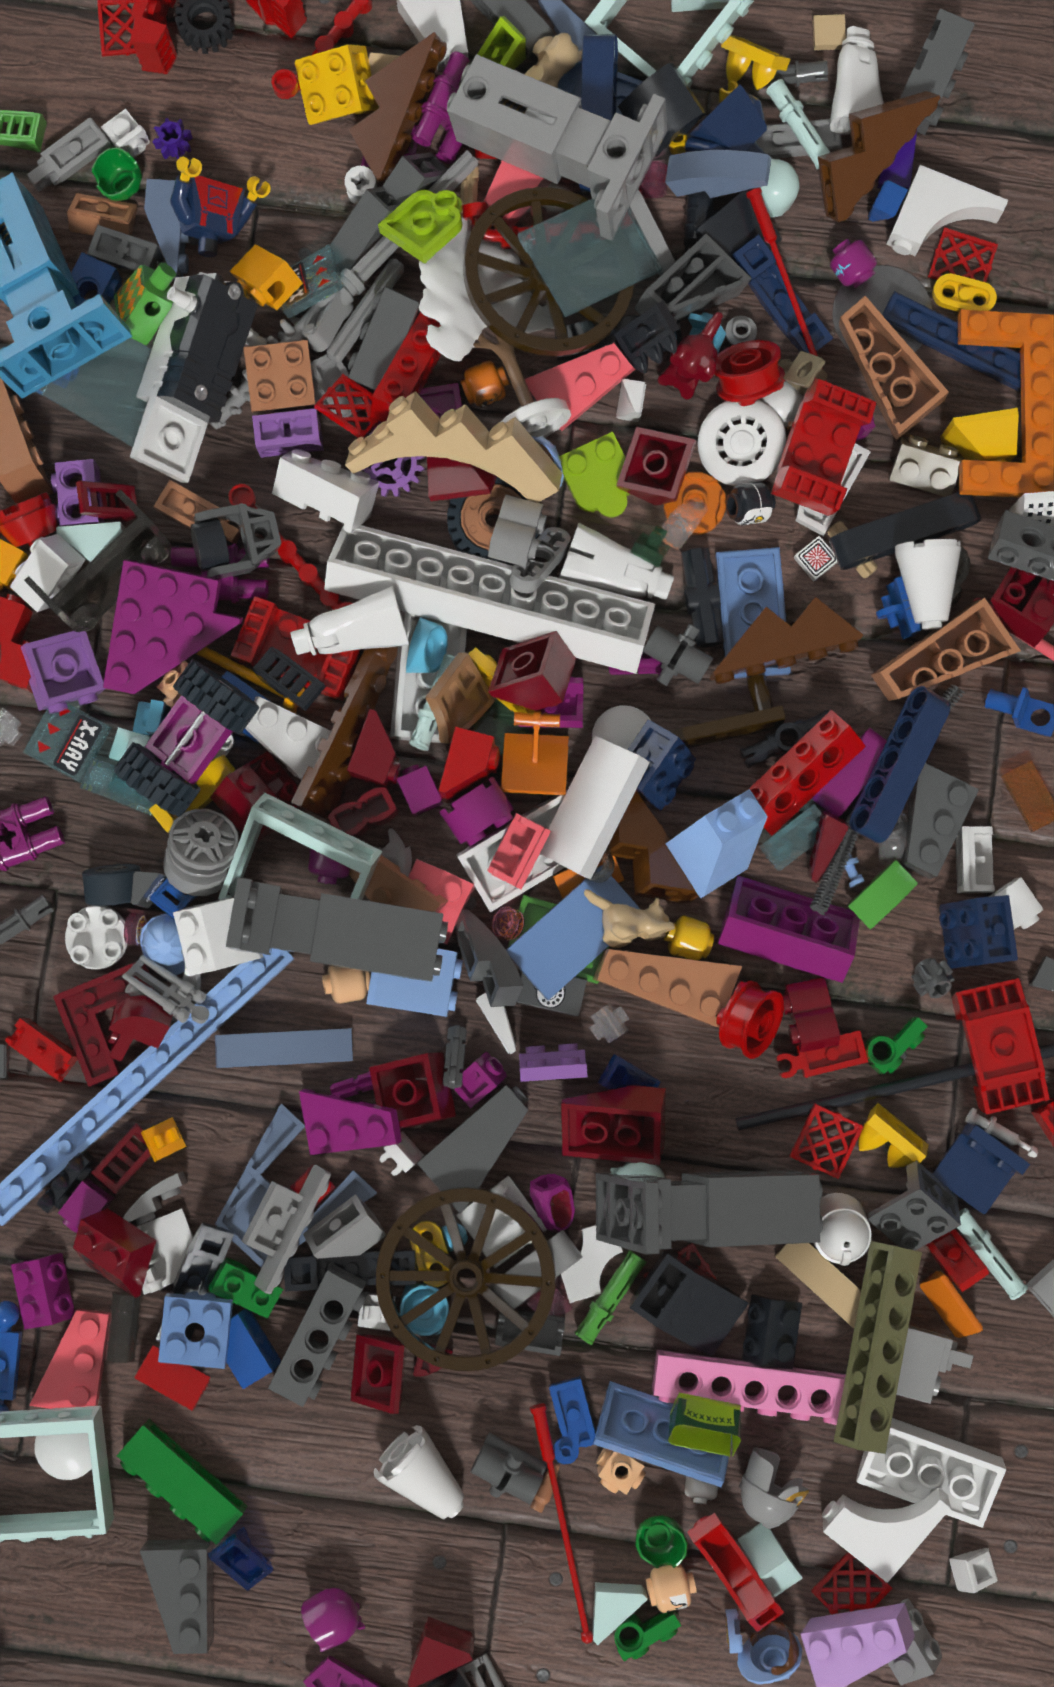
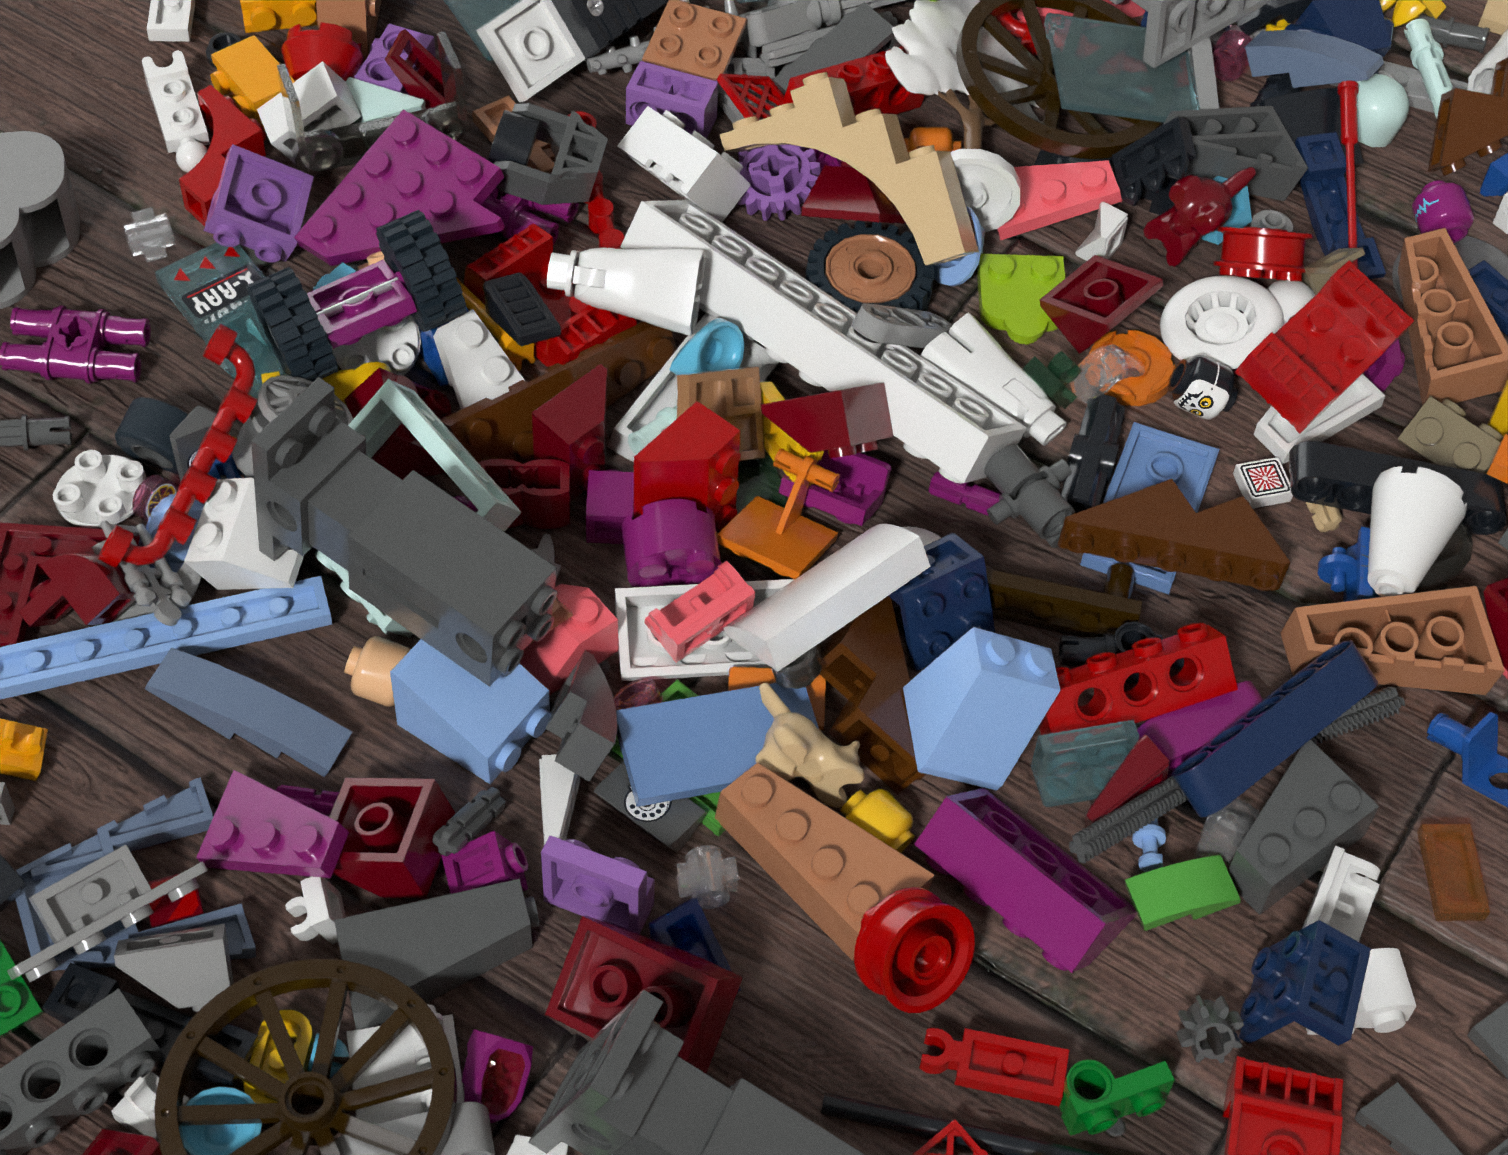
camera: 20 degrees right, 30 degrees down
(167, 926) = (197, 482): none -> red bar
(516, 531) = (889, 274): light grey brick -> none
(811, 1015) = (1004, 993): dark red brick -> none

